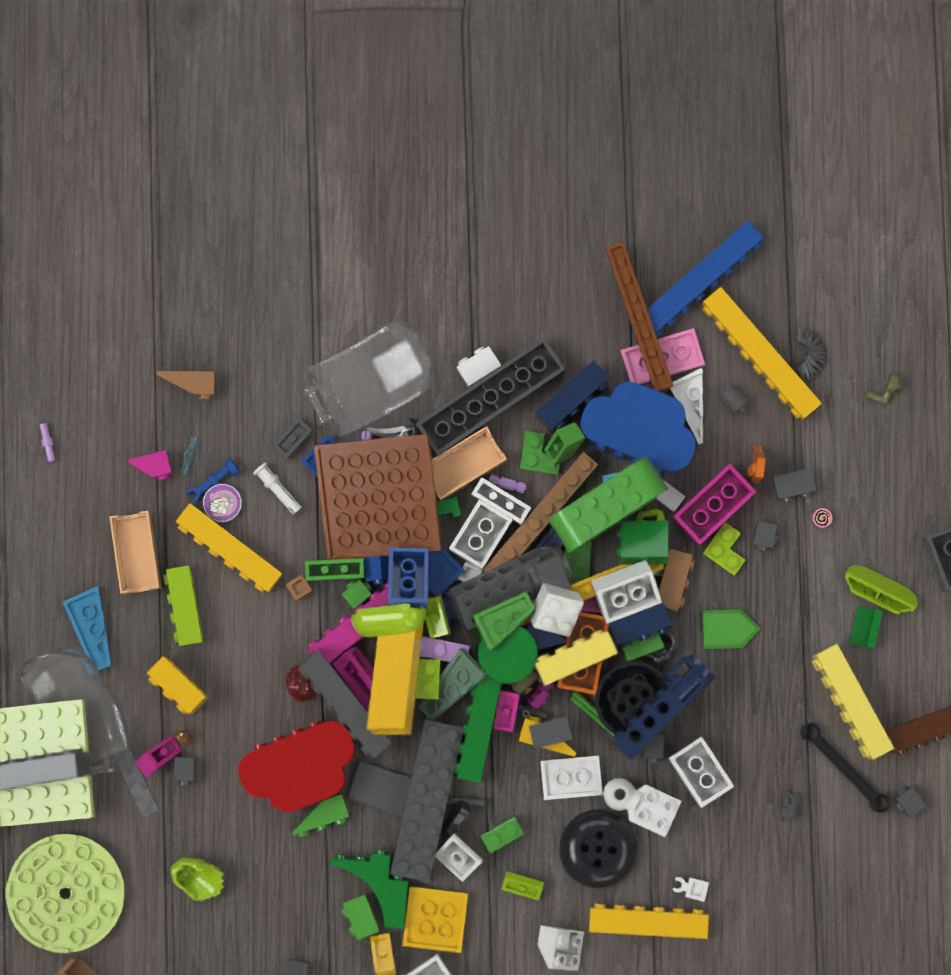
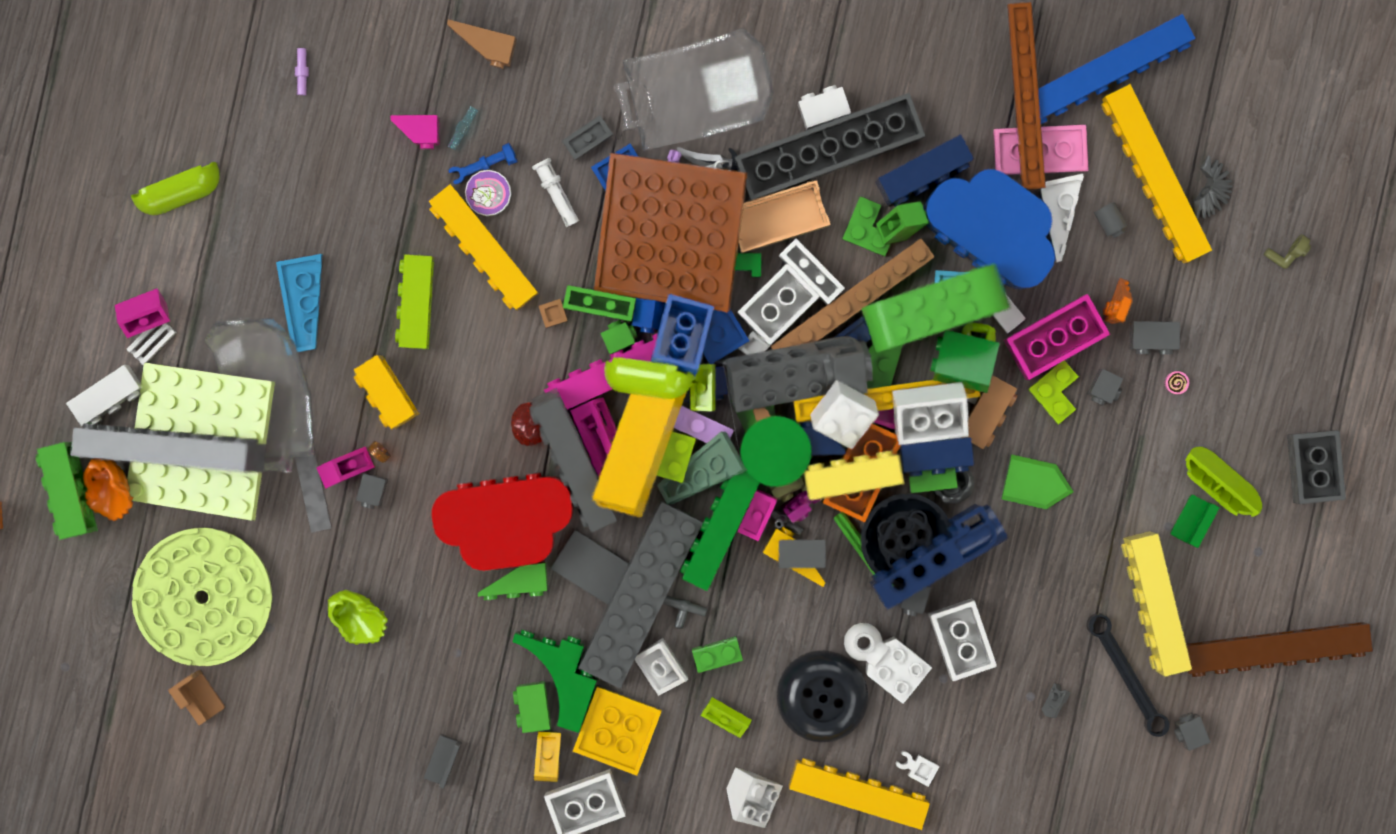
camera: 10 degrees right, 5 degrees up
(135, 553) = (373, 226): light nougat brick -> none
(455, 818) = (669, 621): black plate -> none
(502, 619) = (780, 410): bright green wing -> none
(507, 483) = (824, 252): lavender axle -> none
(571, 777) = (812, 608): white plate -> none

